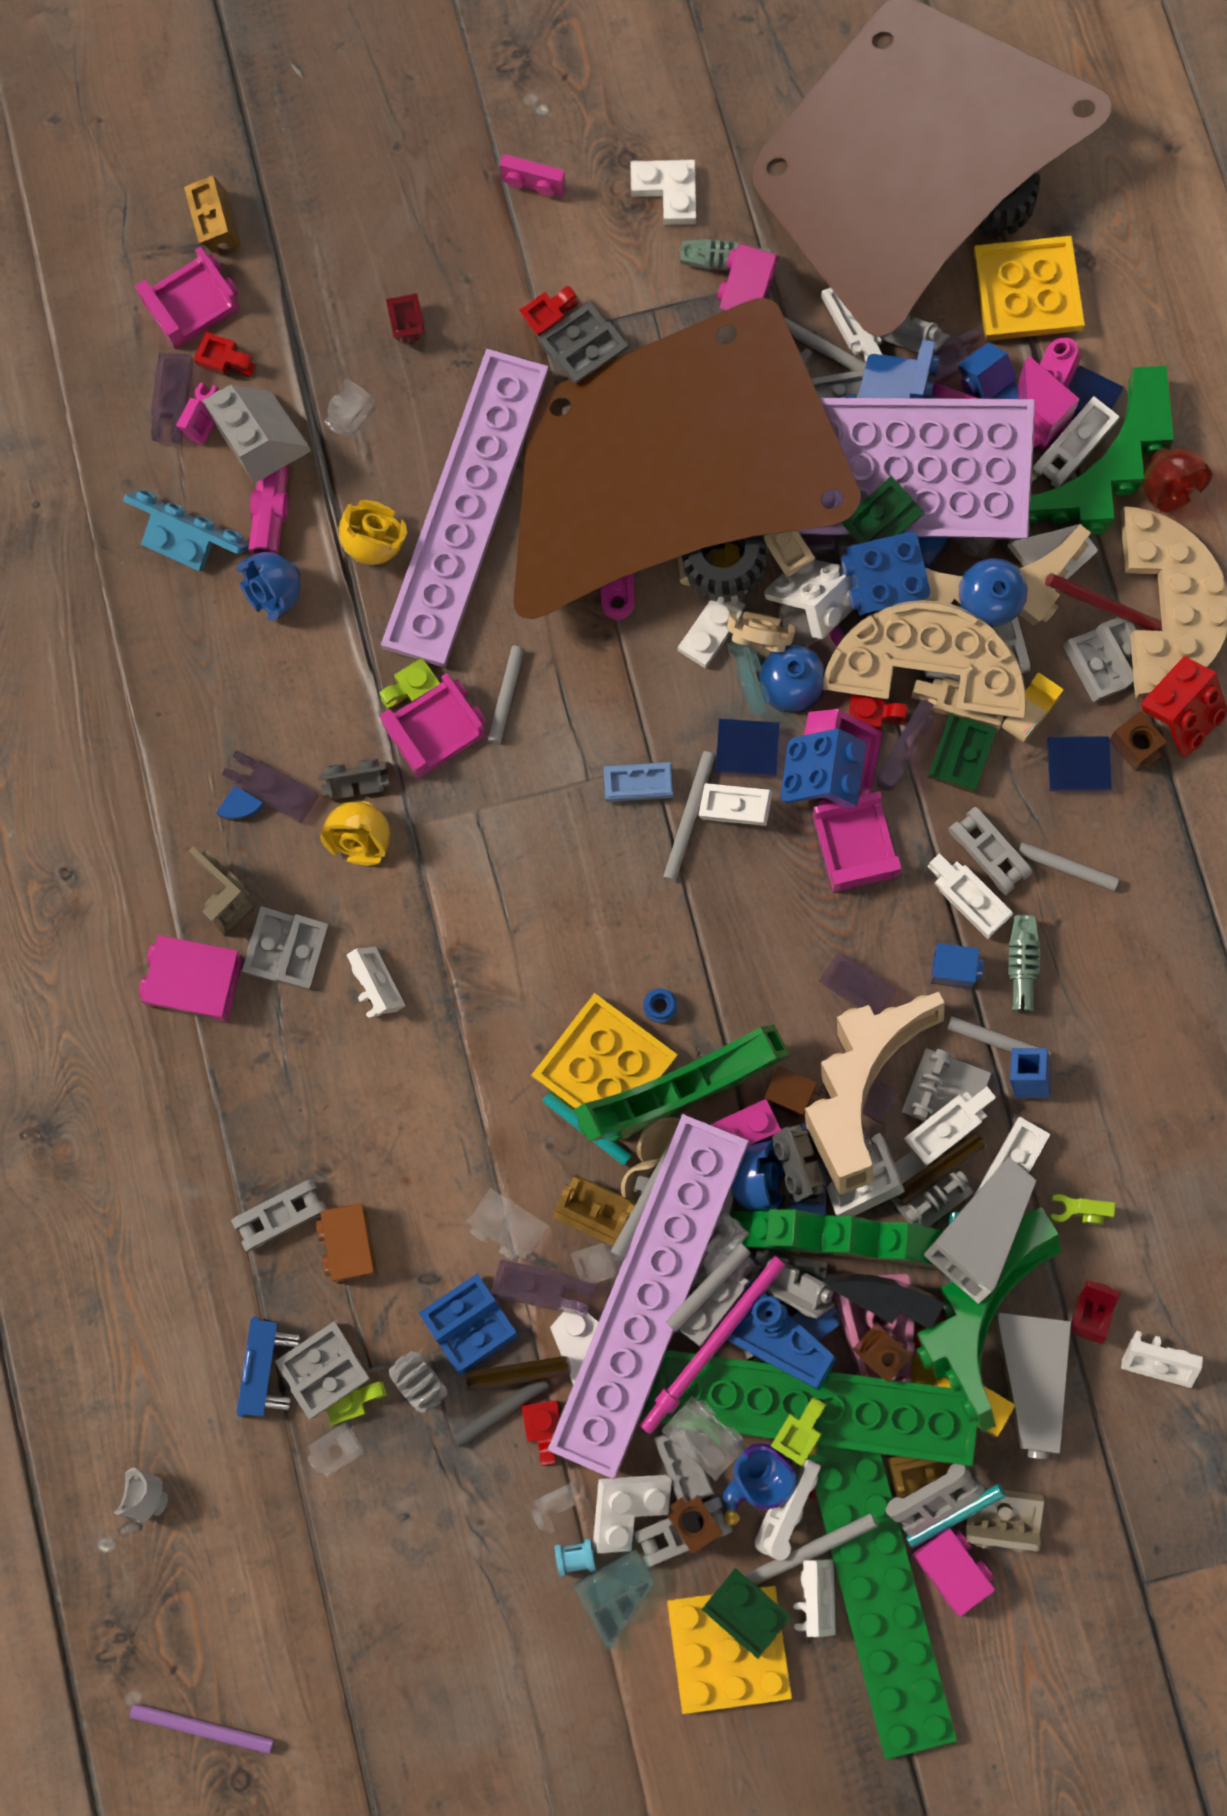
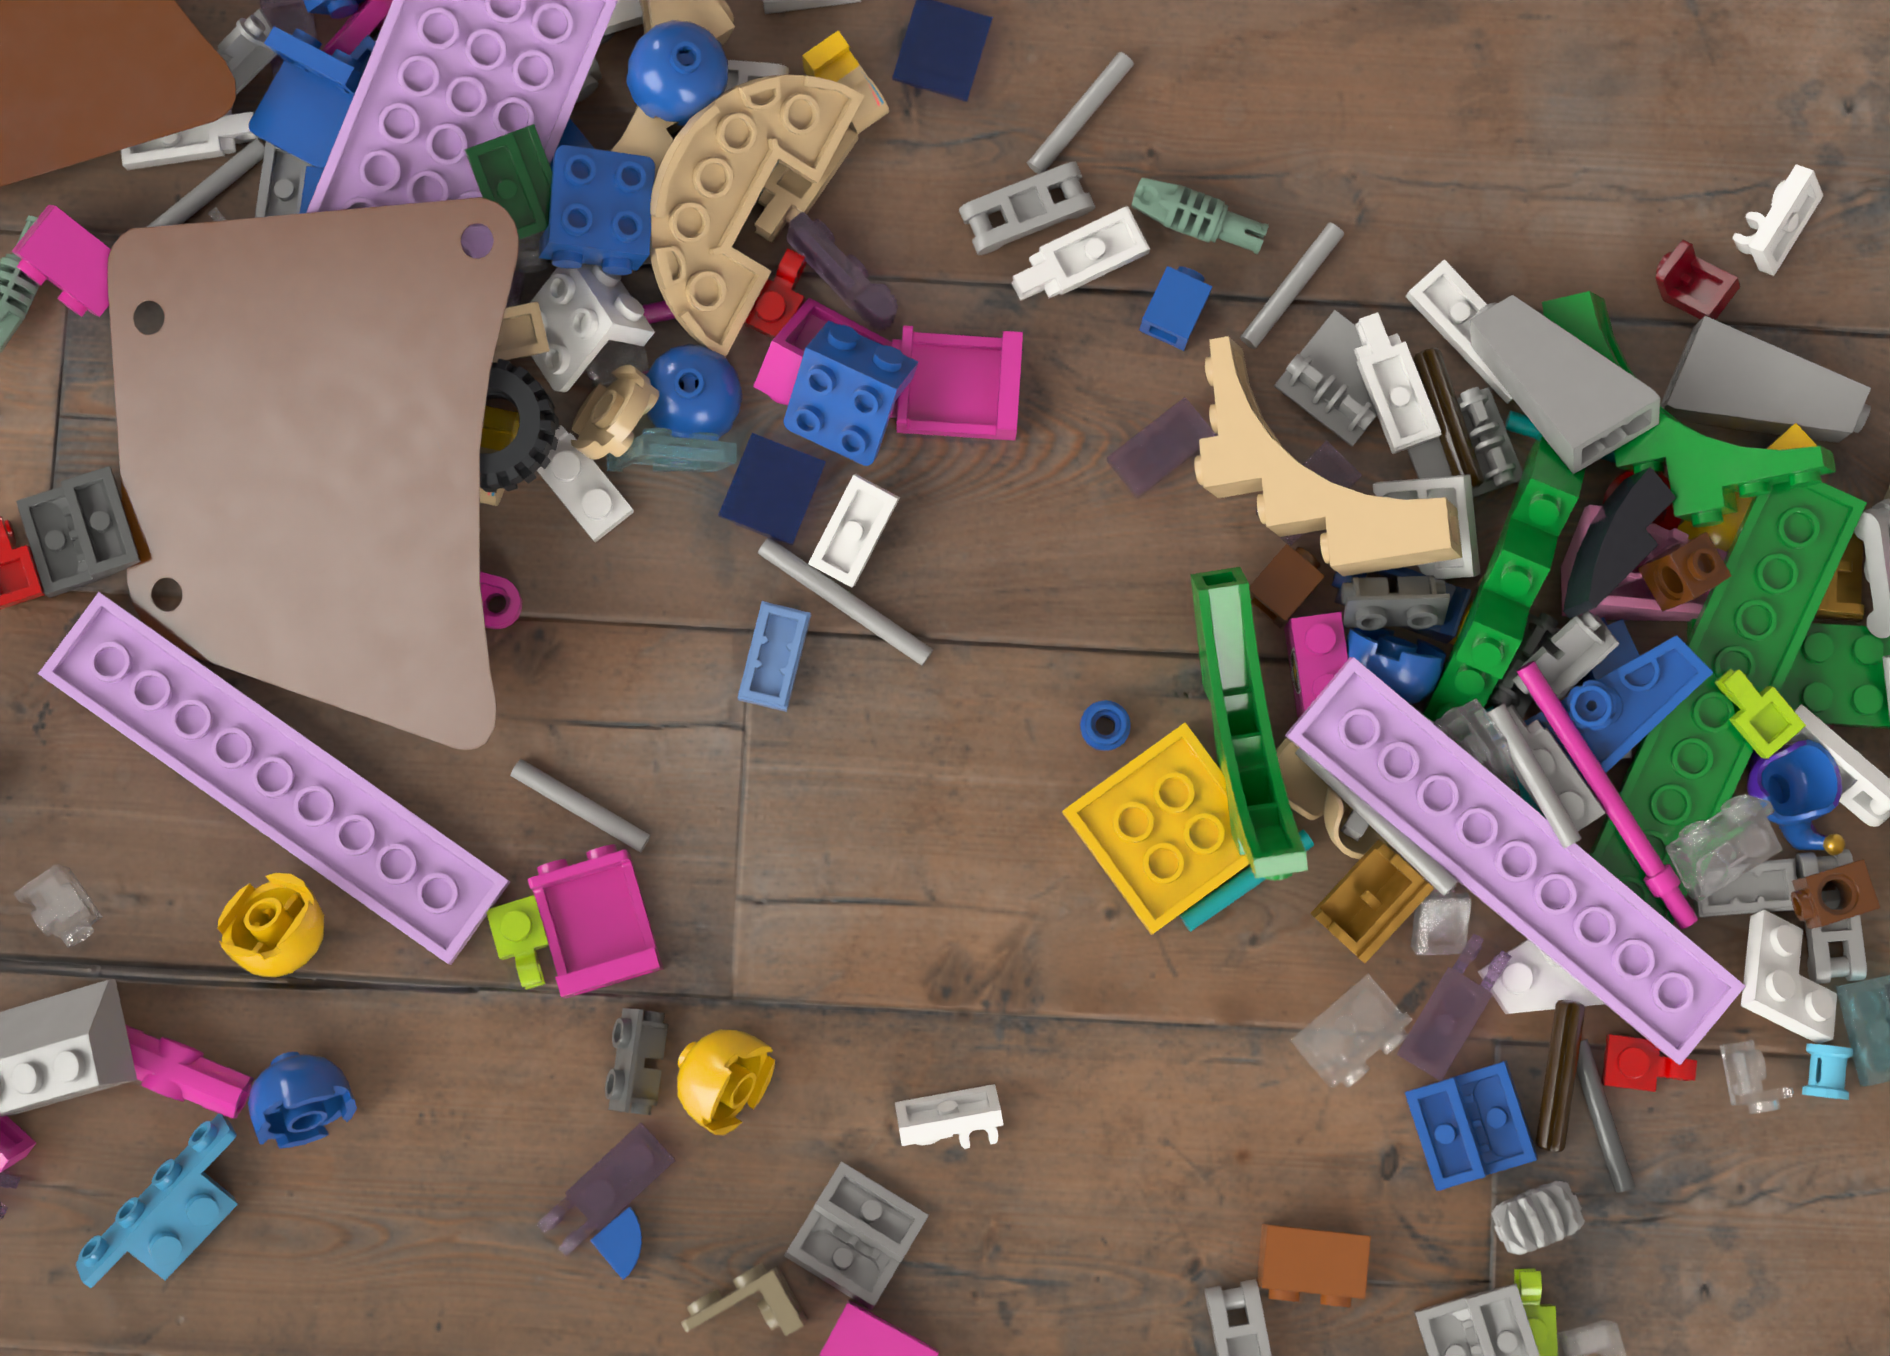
camera: 85 degrees left, 5 degrees up
(962, 753) = (877, 198): dark green plate -> none
(1031, 1073) = (1356, 255): blue brick -> none
(1092, 1211) = (1561, 242): lime plate -> none

